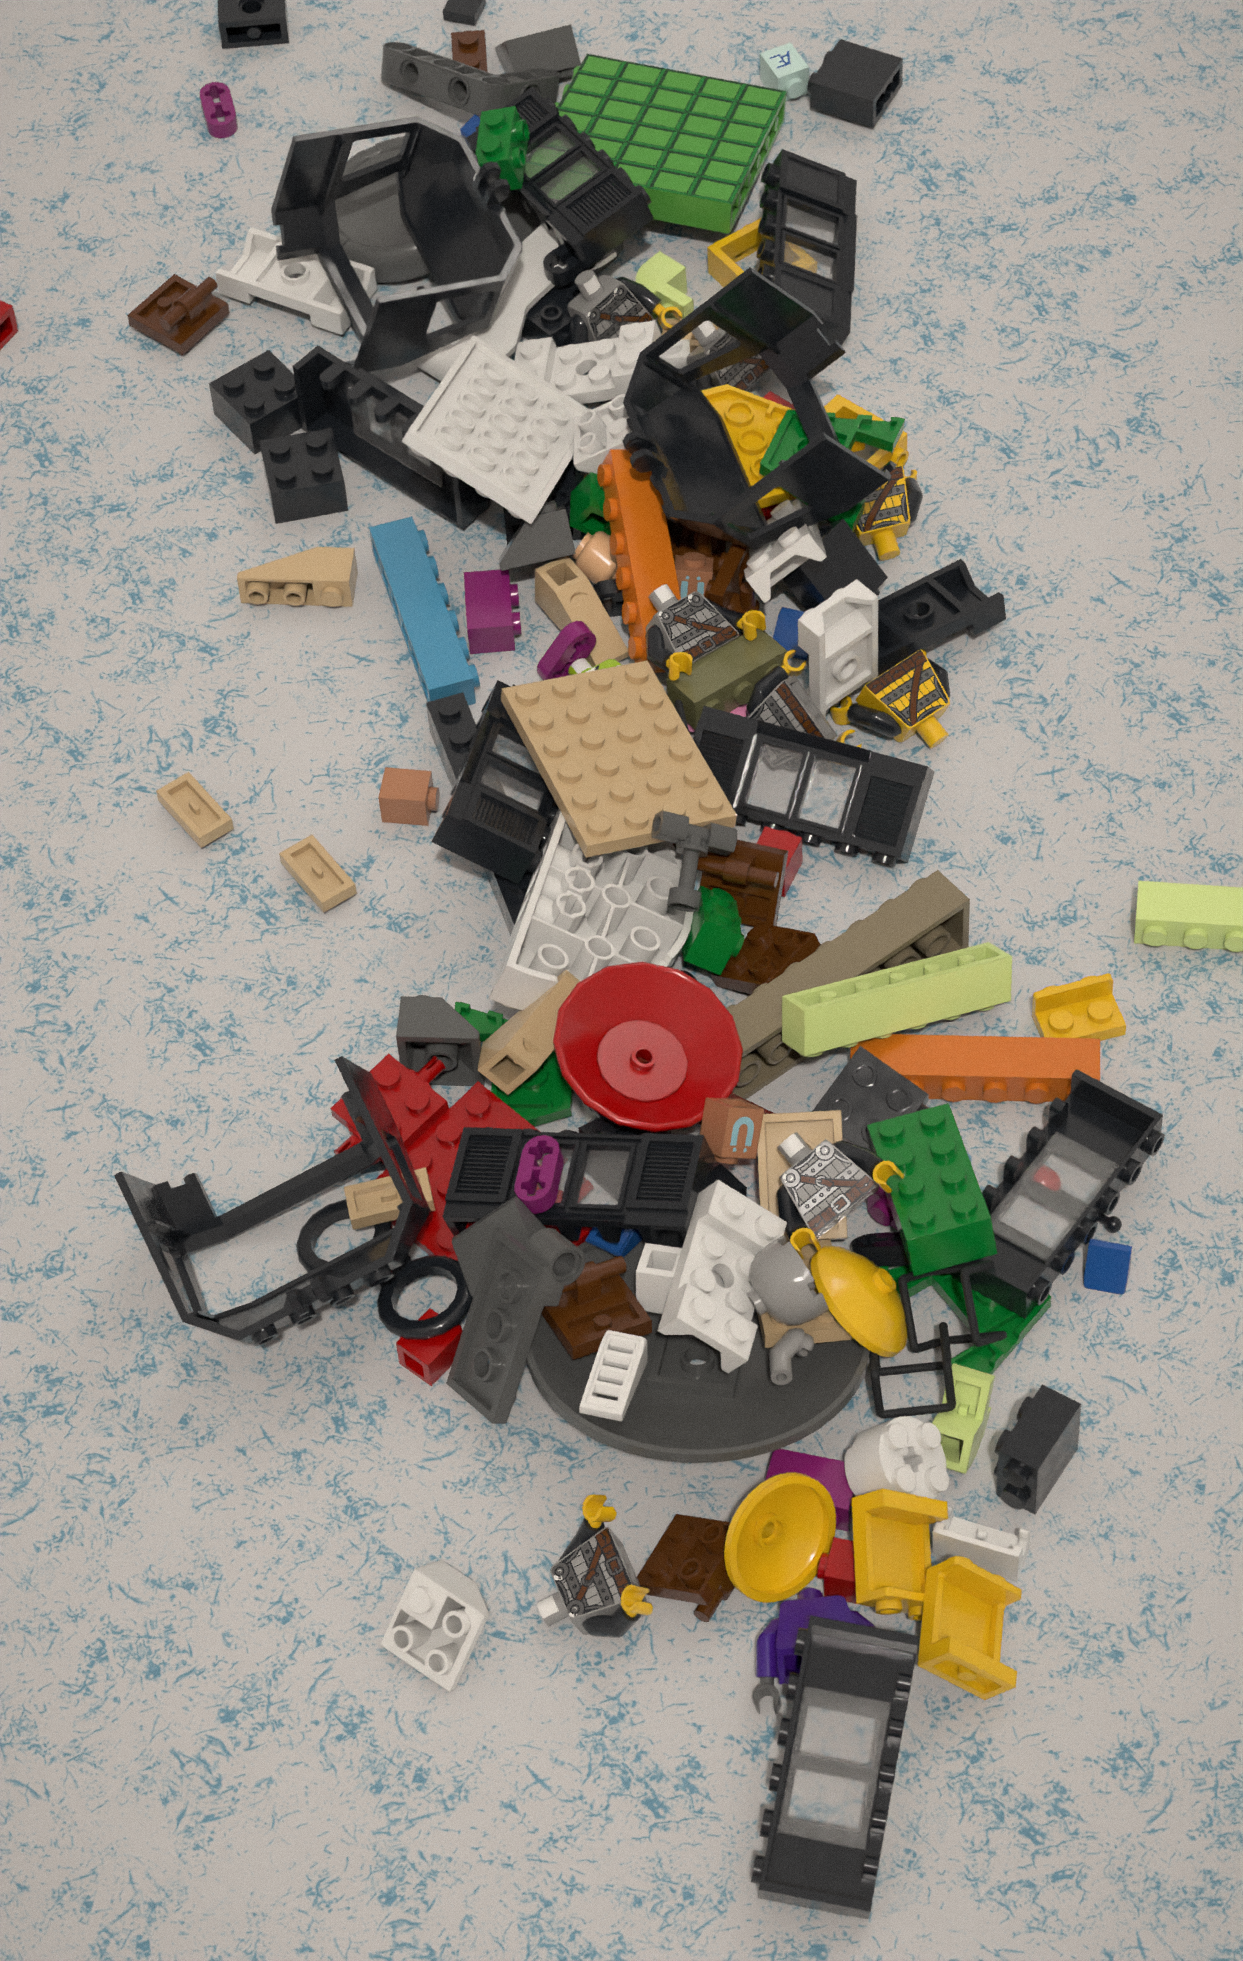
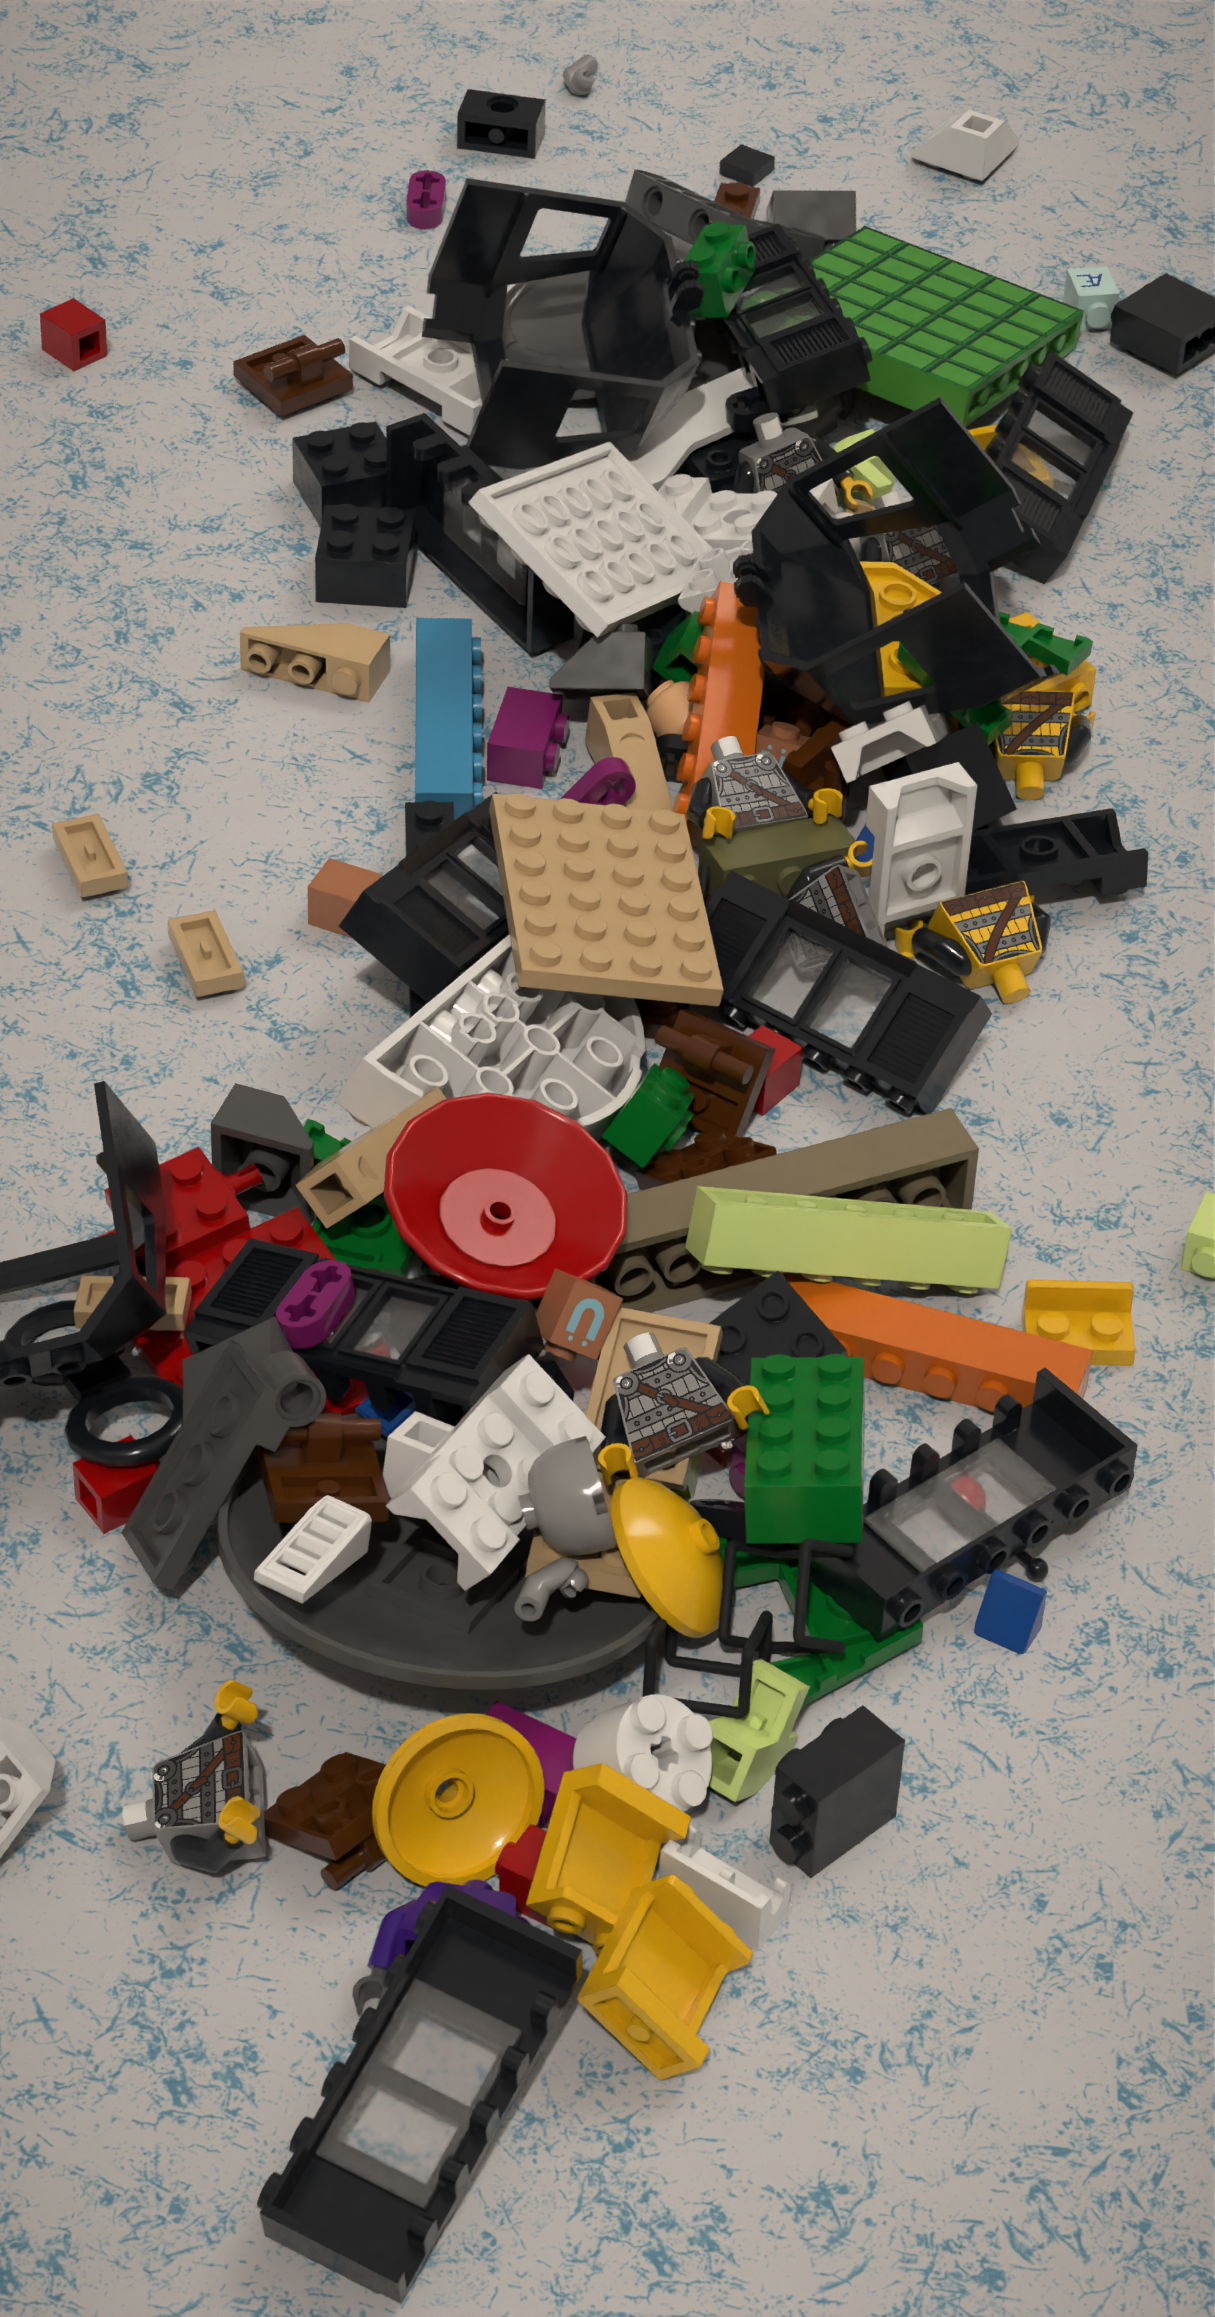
camera: 10 degrees right, 10 degrees down
(692, 843) = (656, 1005): dark grey bar -> none

